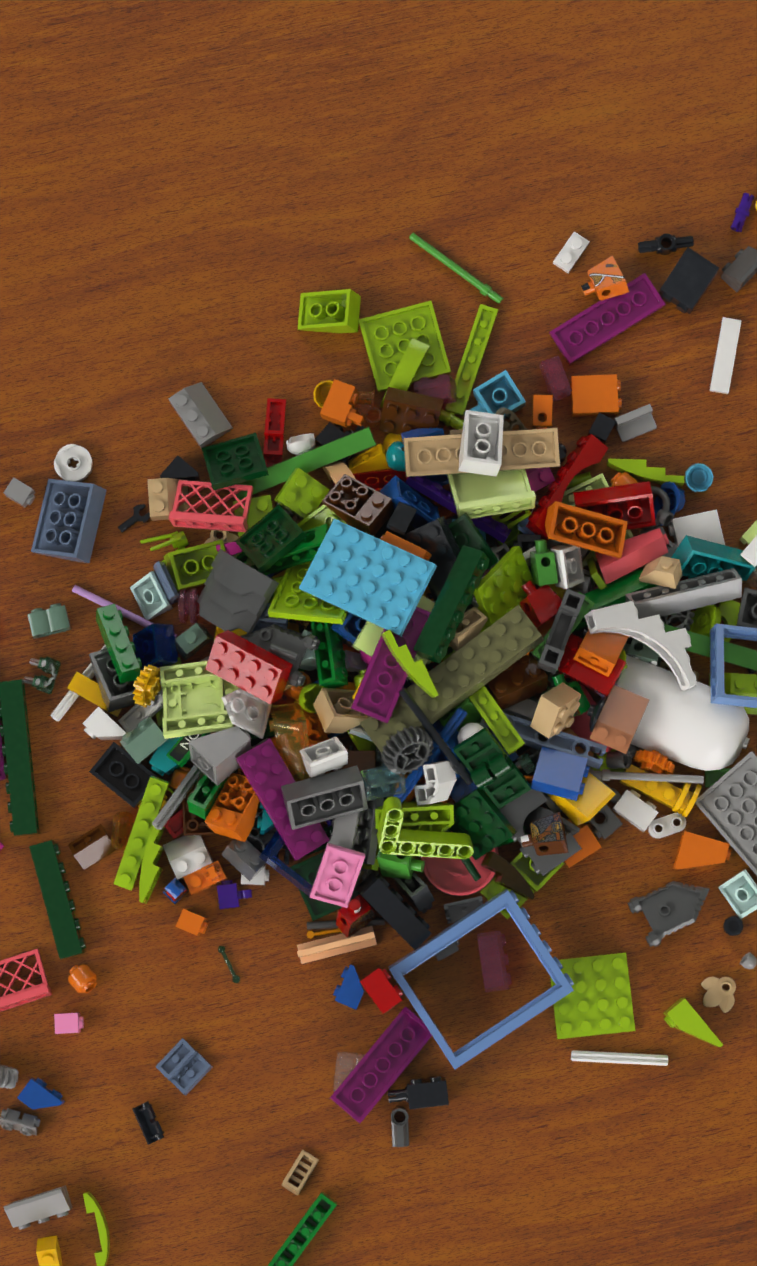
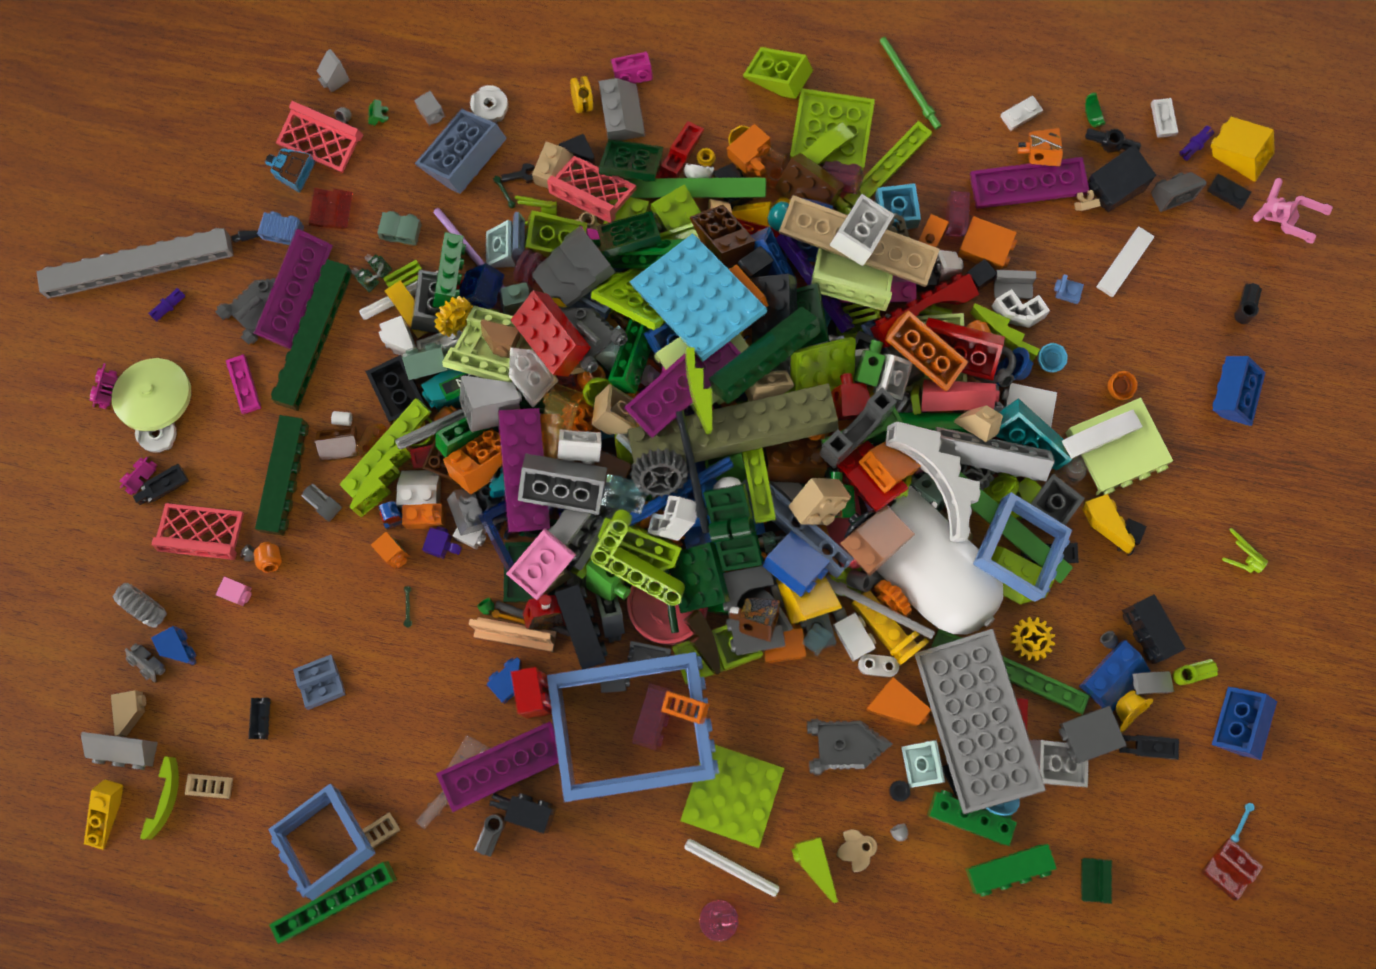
camera: 25 degrees right, 5 degrees down
(27, 1170) = (127, 710): none -> tan slope
(62, 981) = (247, 552): none -> dark grey hinge
(71, 659) = (388, 279): none -> lime tile
(84, 822) = (341, 418): none -> white hinge
(110, 908) = (325, 505): none -> dark grey piece
(115, 532) = (497, 180): none -> dark green hinge
(115, 1201) = (191, 785): none -> tan slope
(157, 417) = (581, 94): none -> yellow head
(191, 368) = (633, 68): none -> dark pink bracket
(202, 689) = (500, 337): none -> medium nougat slope
(230, 1182) = (327, 795): none -> medium blue window
(299, 931) = (485, 606): none -> green hinge
(300, 419) = (706, 152): none -> yellow plate
(339, 1129) = (433, 810): none -> clear pin
(538, 940) = (700, 719): none -> orange slope
(569, 432) = (948, 265): none -> white slope
(605, 829) = (817, 639): none -> clear light blue panel
(629, 1107) = (718, 920): none -> clear pink head
(637, 223) = (1094, 111): none -> green helmet
(642, 448) = (1018, 313): none -> white brick
(668, 316) = (1087, 203): none -> tan tile
(686, 405) = (1068, 290): none -> medium blue bracket
(703, 200) = (1164, 117): none -> white plate

